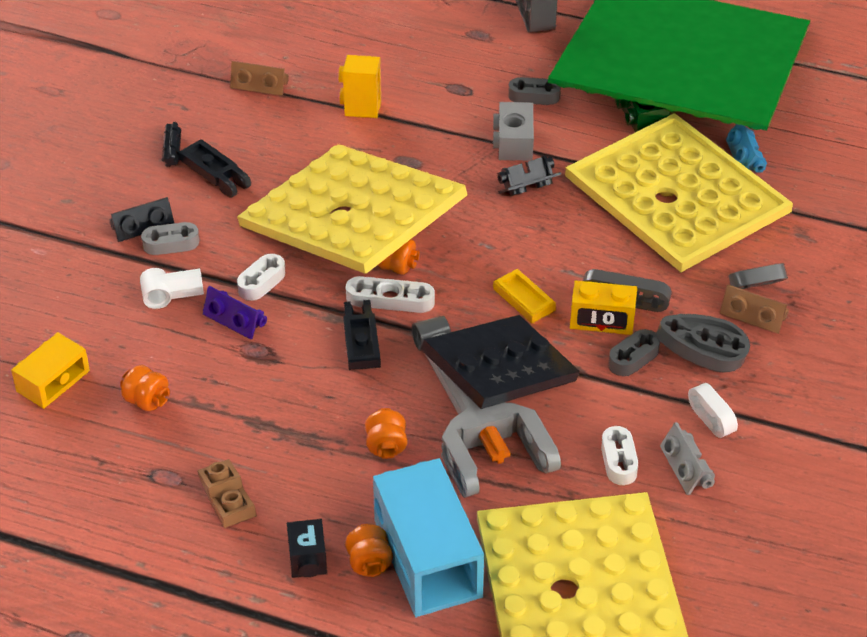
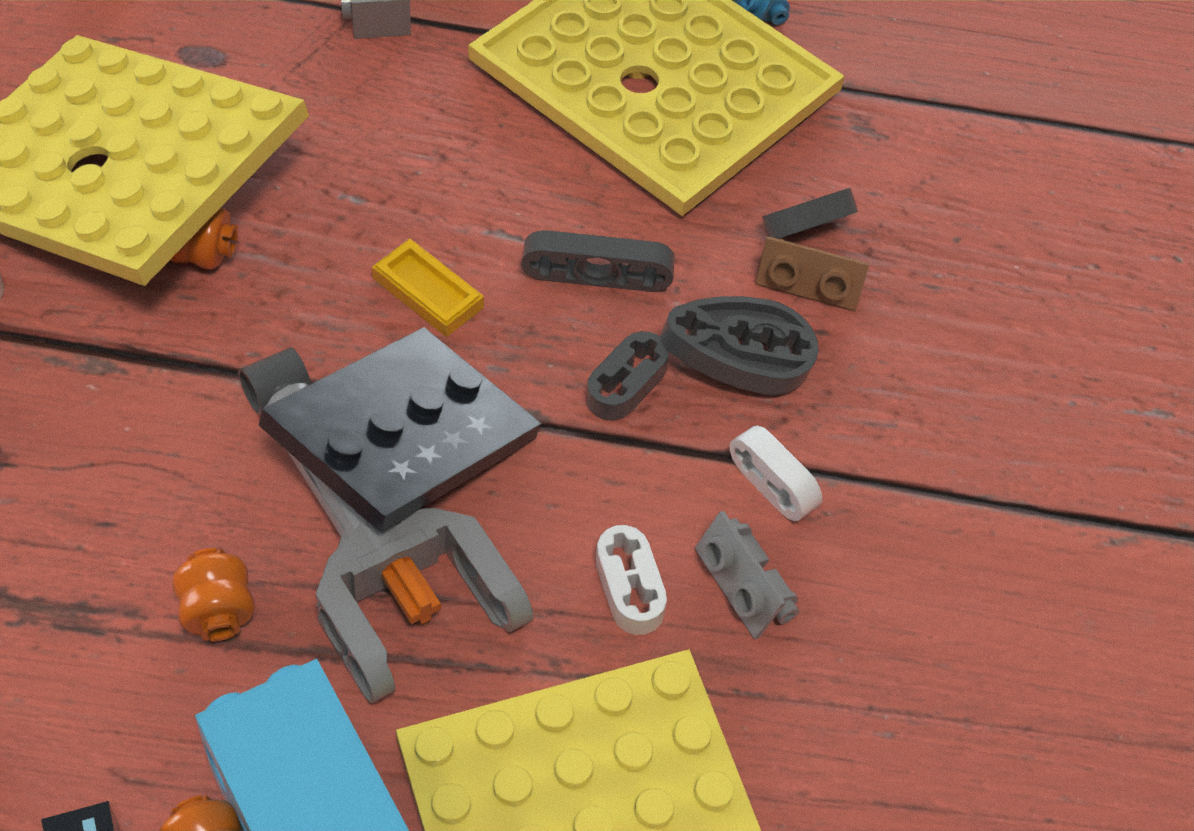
camera: 15 degrees left, 10 degrees up
(361, 337) = (150, 403): black hinge -> none
(412, 289) = (178, 295): white beam -> none
(538, 172) = (390, 75): hinge -> none
(603, 307) = (566, 298): yellow brick -> none

